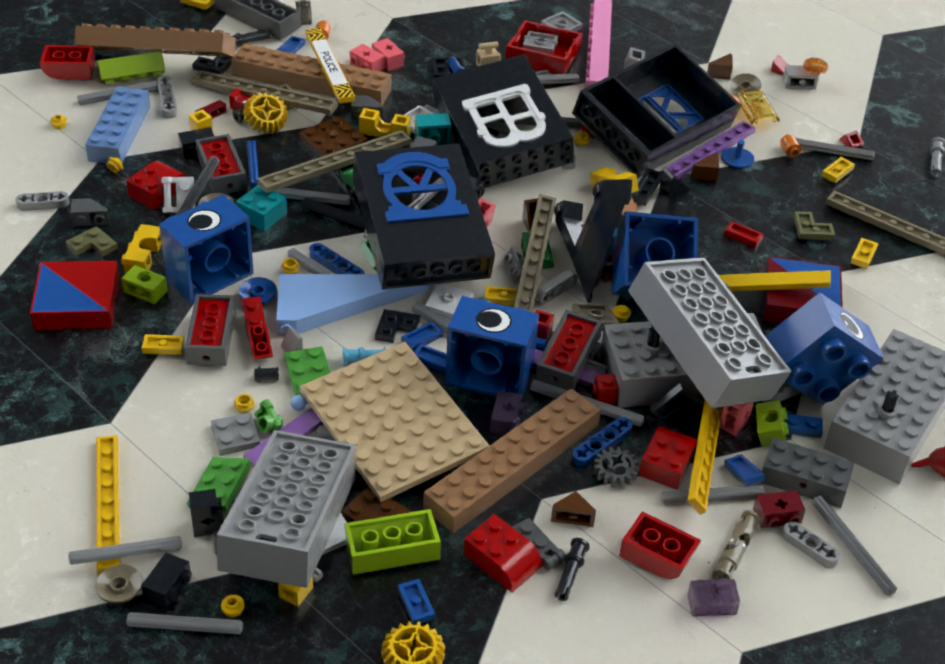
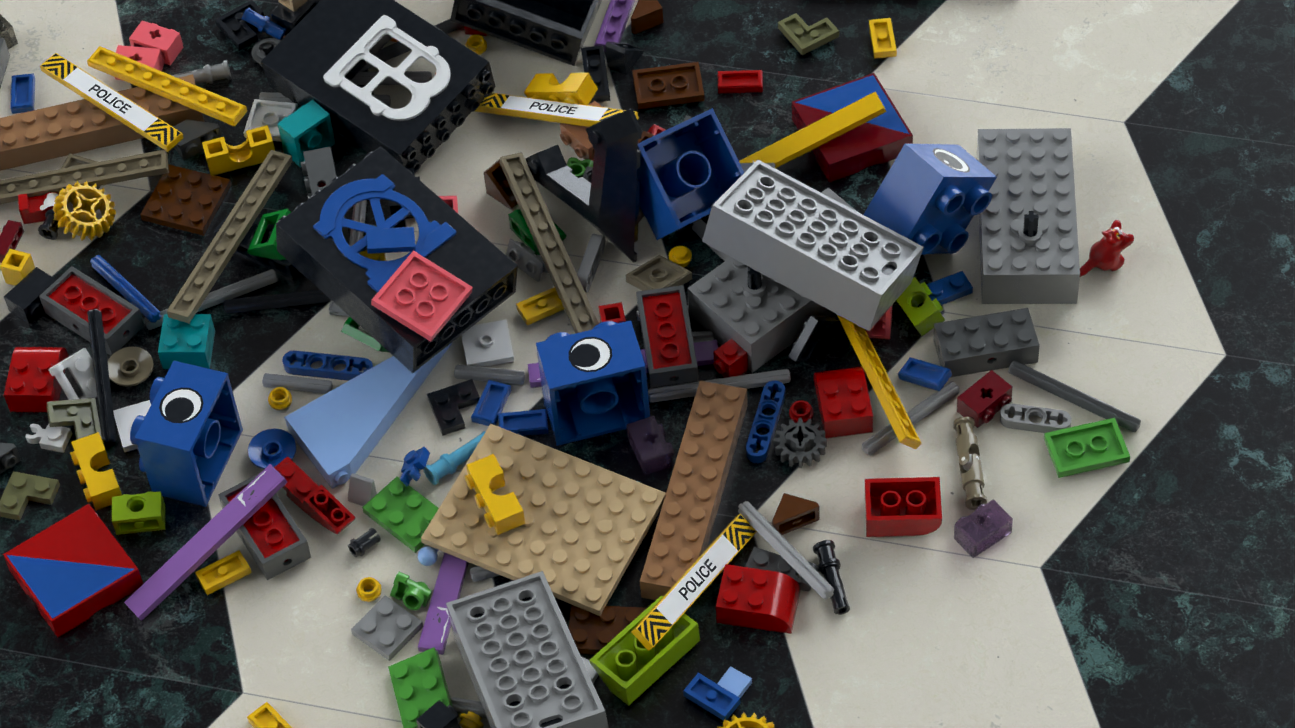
camera: 25 degrees left, 10 degrees up
(135, 219) = (50, 438): none -> white plate
(157, 210) = (76, 412): none -> olive plate
(163, 317) = (205, 542): none -> medium lavender tile
(325, 27) = (44, 47): orange brick -> none
(339, 342) = (413, 463): none -> blue plate
(364, 394) = (502, 511): none -> yellow arch
(369, 72) = (167, 86): none -> yellow tile
(406, 83) = (209, 73): none -> light grey pin
(413, 236) = (422, 296): none -> coral plate
(419, 195) = (390, 240): none -> blue tile
(442, 602) = (735, 682): none -> light blue tile
(458, 512) = (693, 582): none -> tile
(548, 531) = (786, 550): none -> light grey axle
(587, 184) = (546, 110): none -> tile
(634, 447) = (801, 407): none -> red plate
(684, 207) = (668, 85): none -> reddish brown plate
(839, 585) = (1086, 447): none -> bright green plate

